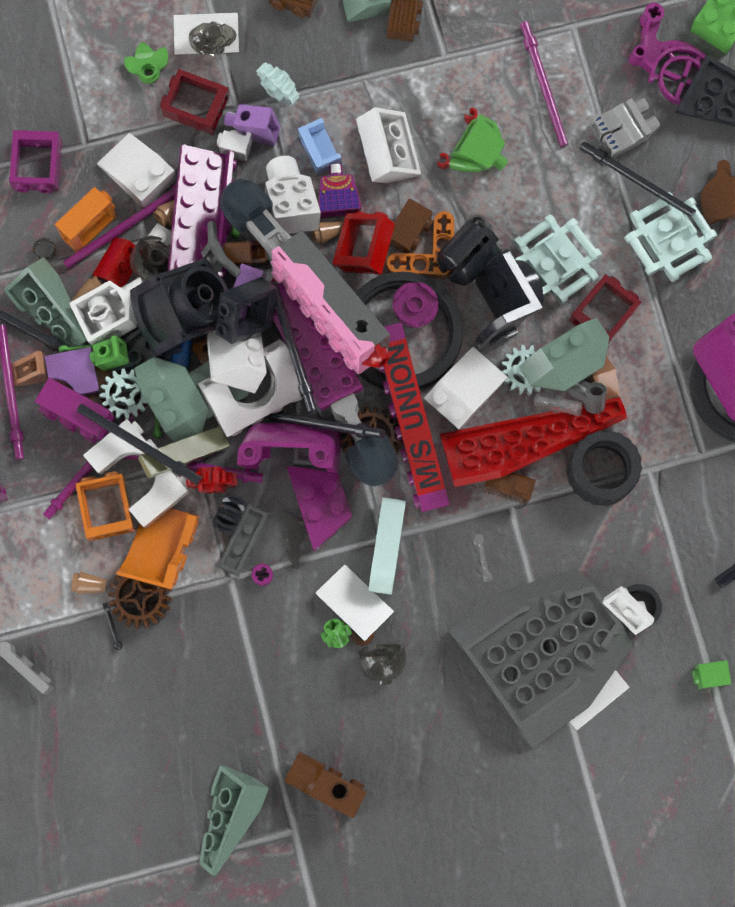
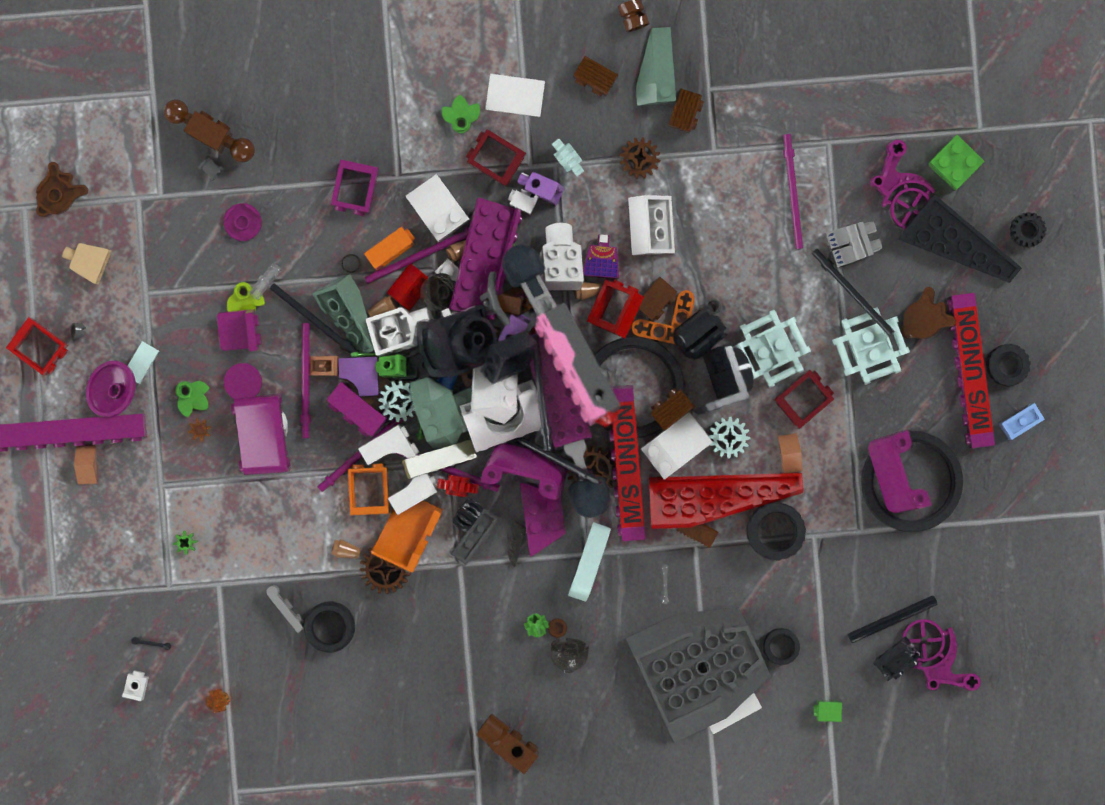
camera: 15 degrees right, 10 degrees up
(58, 671) = (309, 630): none -> black tyre
(117, 645) = (361, 602): black hinge -> none
(178, 468) = (433, 476): black bar -> none
(211, 38) = (519, 104): clear smoke head -> none
(234, 808) = (432, 748): sand green wedge -> none
(258, 568) = (483, 561): magenta bush -> none
(318, 146) = (593, 215): light blue panel -> none
(351, 75) = (631, 157): none -> reddish brown gear
(354, 603) = (554, 603): white sticker -> none
(415, 304) = (648, 369): magenta tile -> none
(452, 344) = (671, 409): none -> reddish brown brick
(478, 146) = (726, 239): bright green torso -> none
(558, 404) = (749, 471): clear pin -> none
(568, 357) = (765, 438): sand green wedge -> none
(591, 394) = (773, 466): dark grey piece -> none
(628, 610) = (771, 651): white tile -> none

